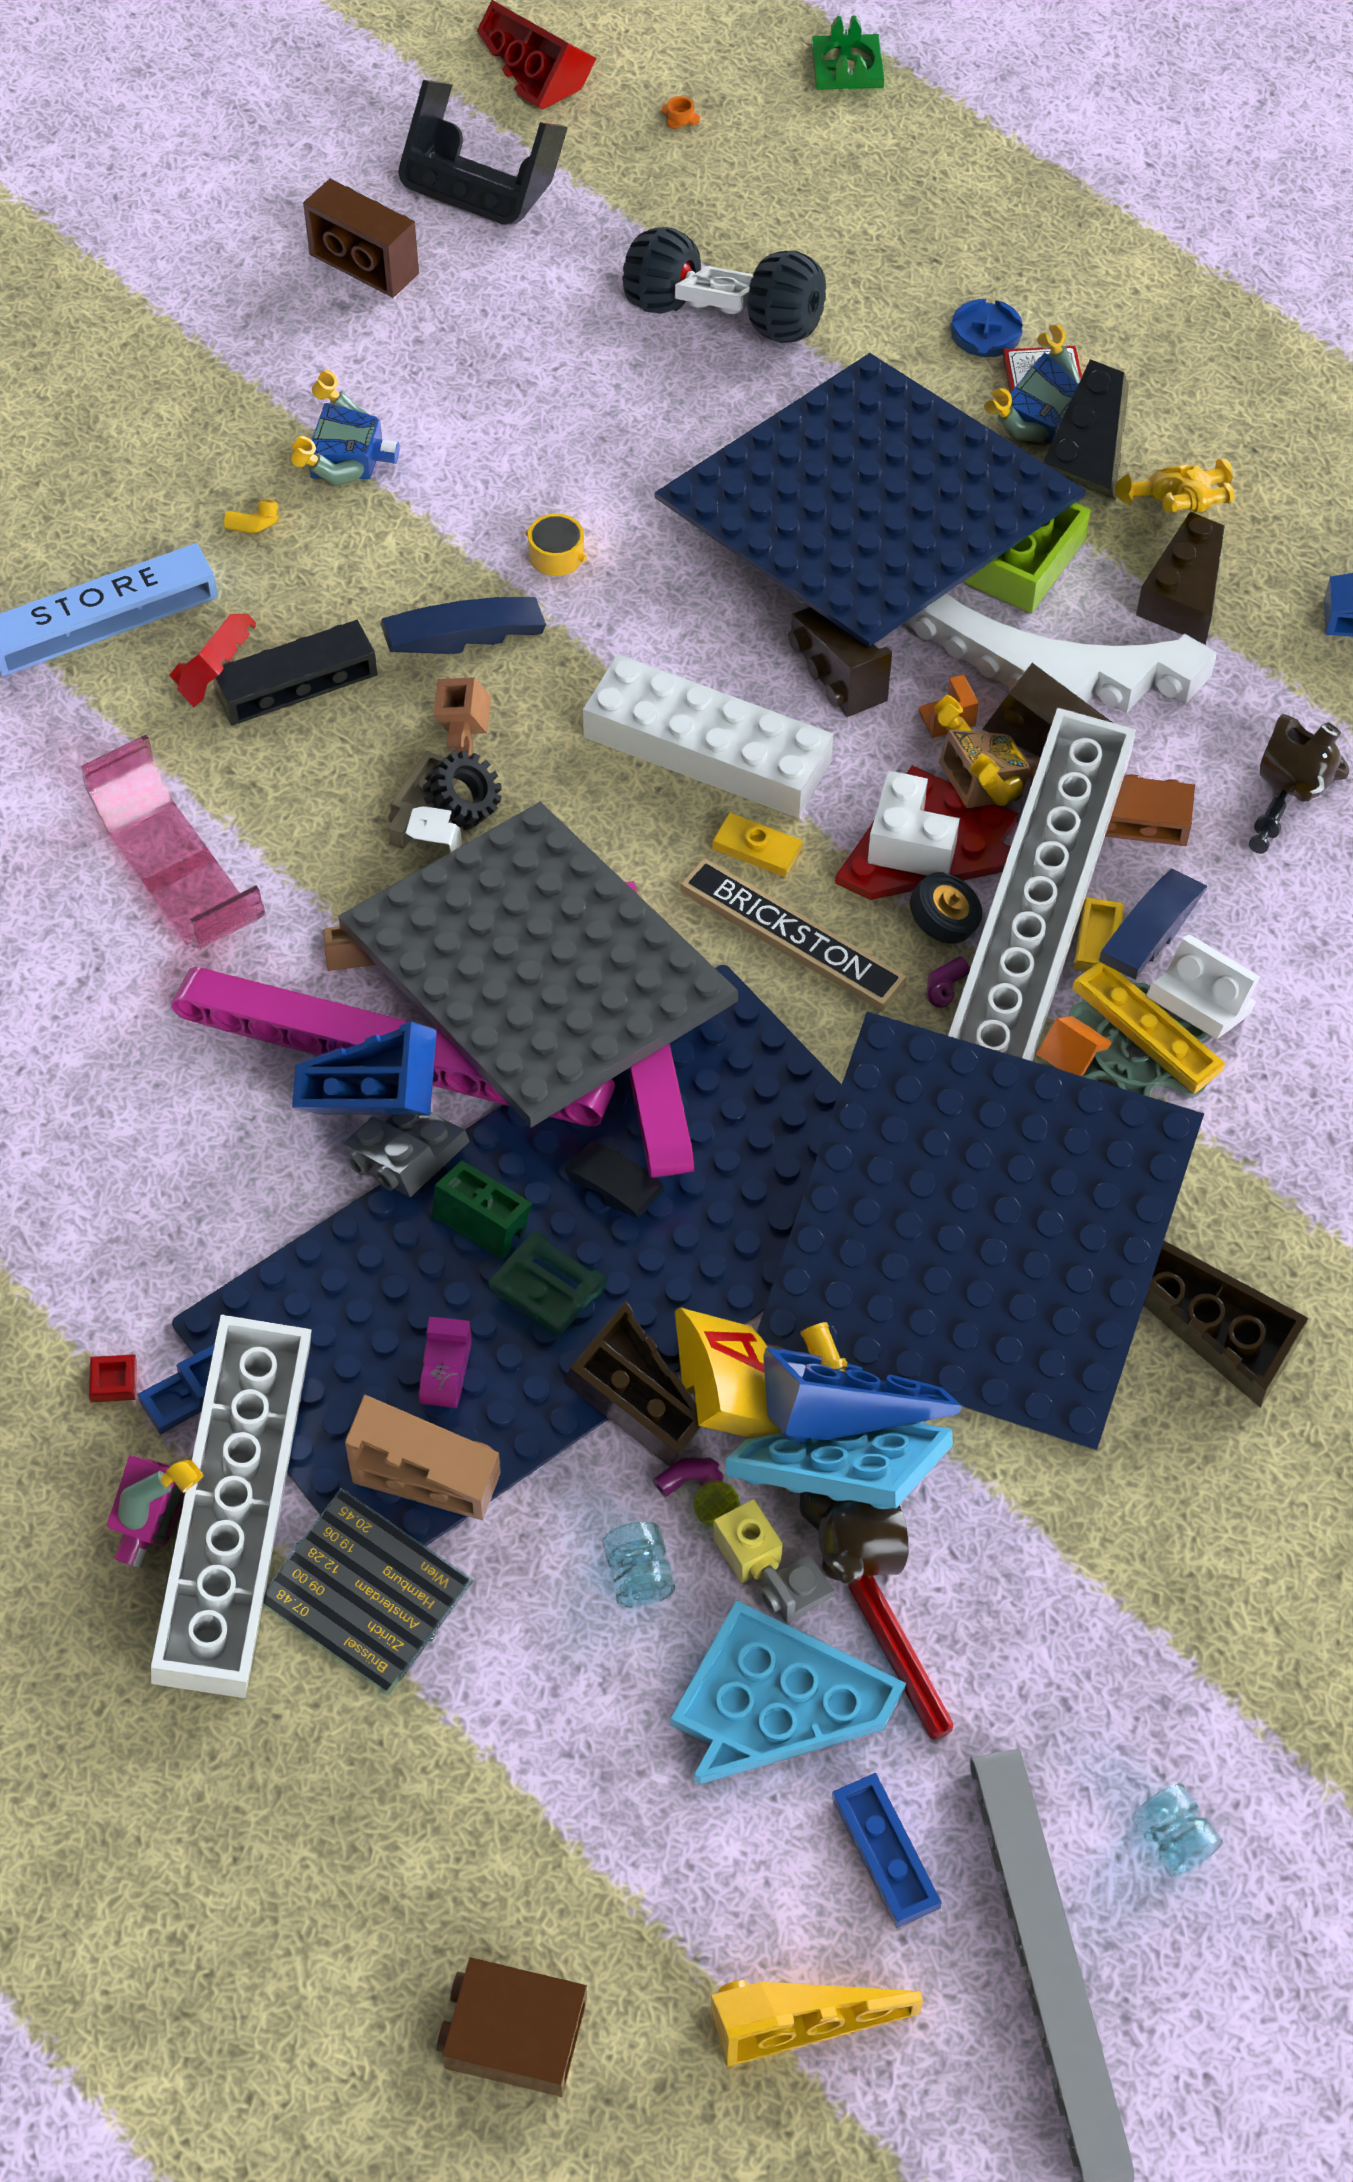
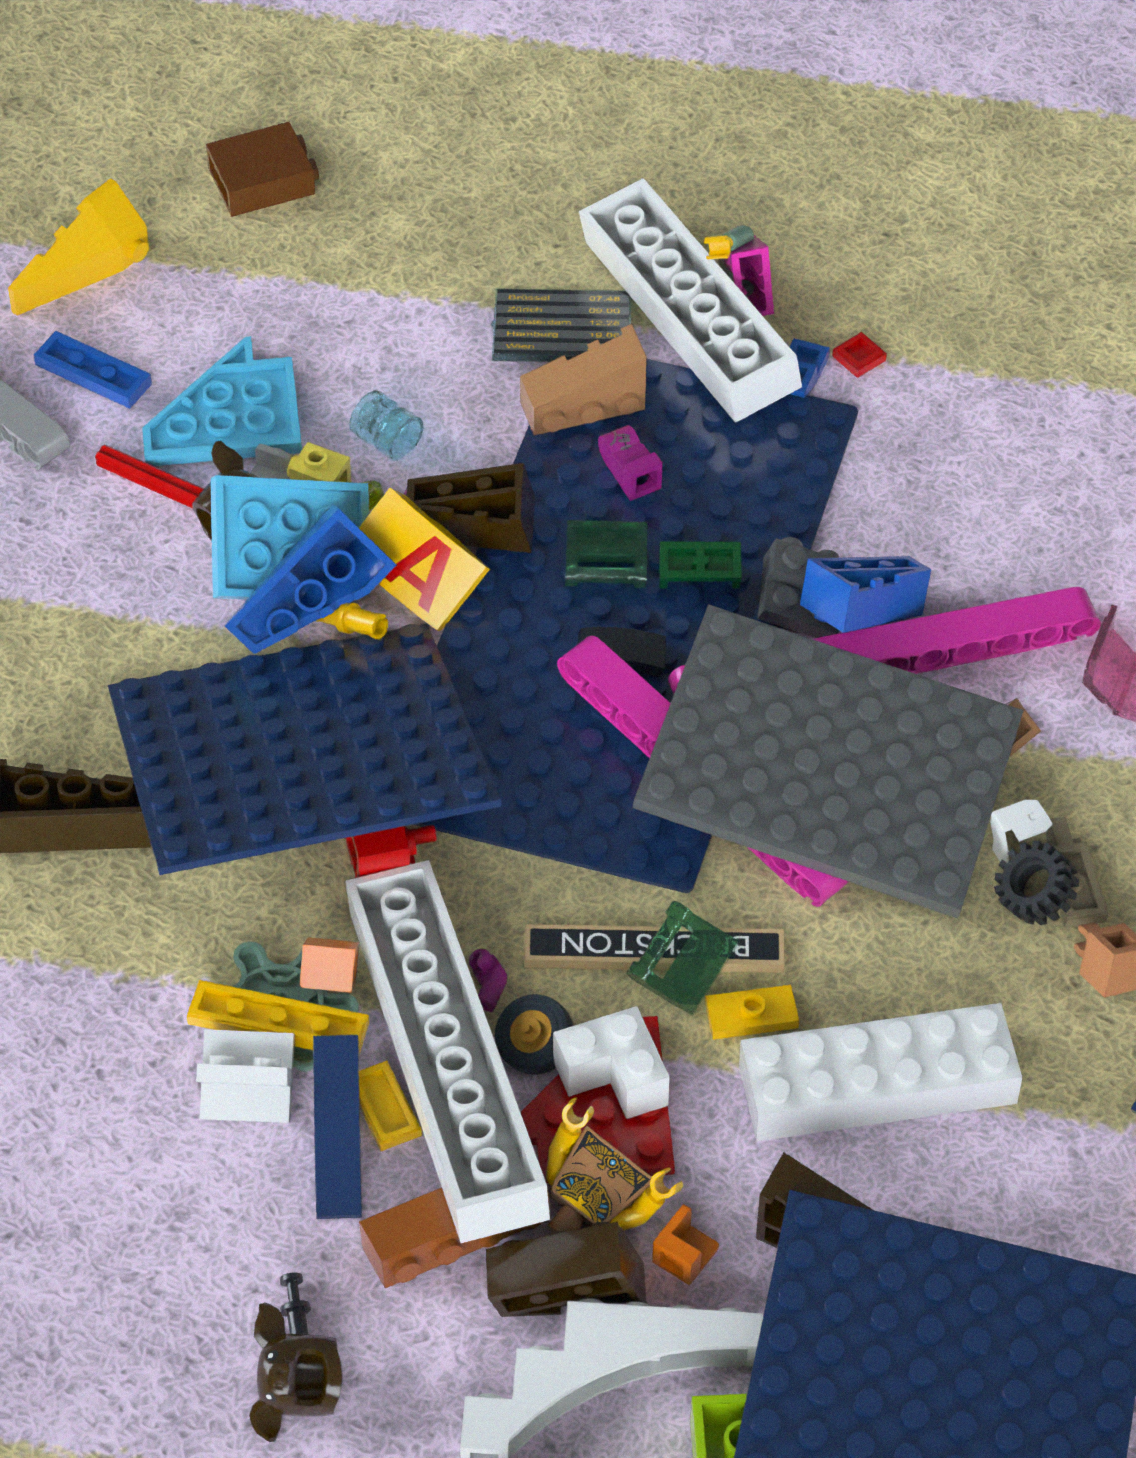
camera: 145 degrees right, 5 degrees down
(782, 895) = (695, 965): none -> clear green plate

